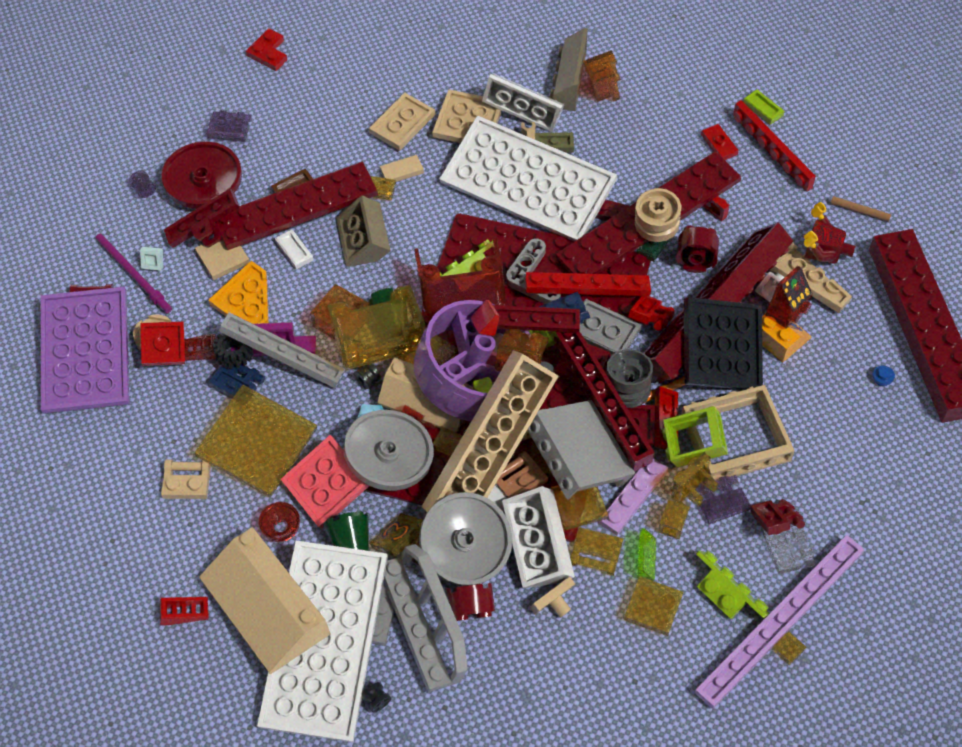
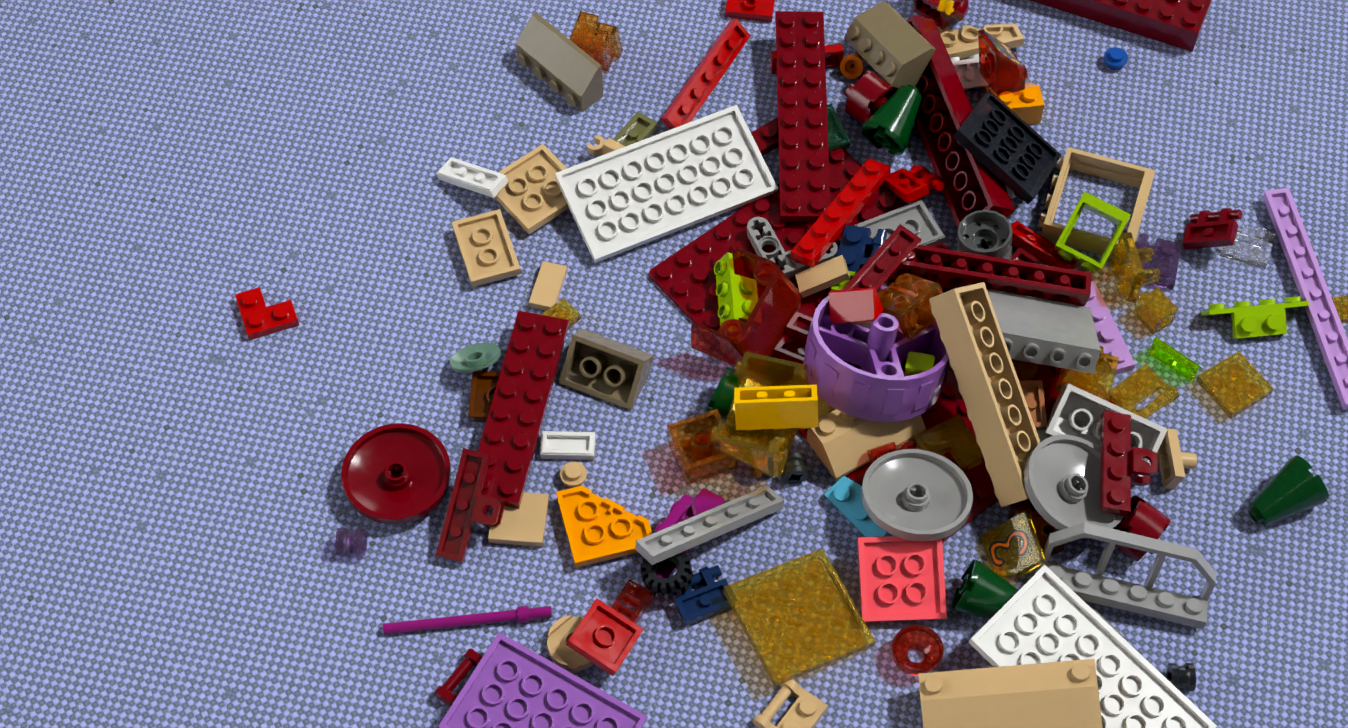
camera: 55 degrees left, 0 degrees up
(151, 258) = (468, 588): light aqua tile -> none
(229, 126) = (346, 415): clear purple plate -> none
(273, 263) = (573, 474): none -> tan plate
(315, 164) = (475, 357): none -> sand green dish
(380, 326) = (776, 407): none -> yellow brick
(446, 82) = (472, 177): none -> white tile
(505, 557) = (1121, 465): none -> dark red plate
(521, 298) = (822, 276): none -> tan tile
(522, 102) = (567, 126): white slope -> none
(581, 688) = (1288, 493): none -> dark green cone
(638, 151) = (706, 75): none -> red plate
(657, 215) = (821, 100): tan wheel -> none
(691, 269) = (894, 120): none -> dark green cone
(722, 224) = (852, 66): none -> orange tile
(745, 229) = (890, 45): none -> dark tan slope

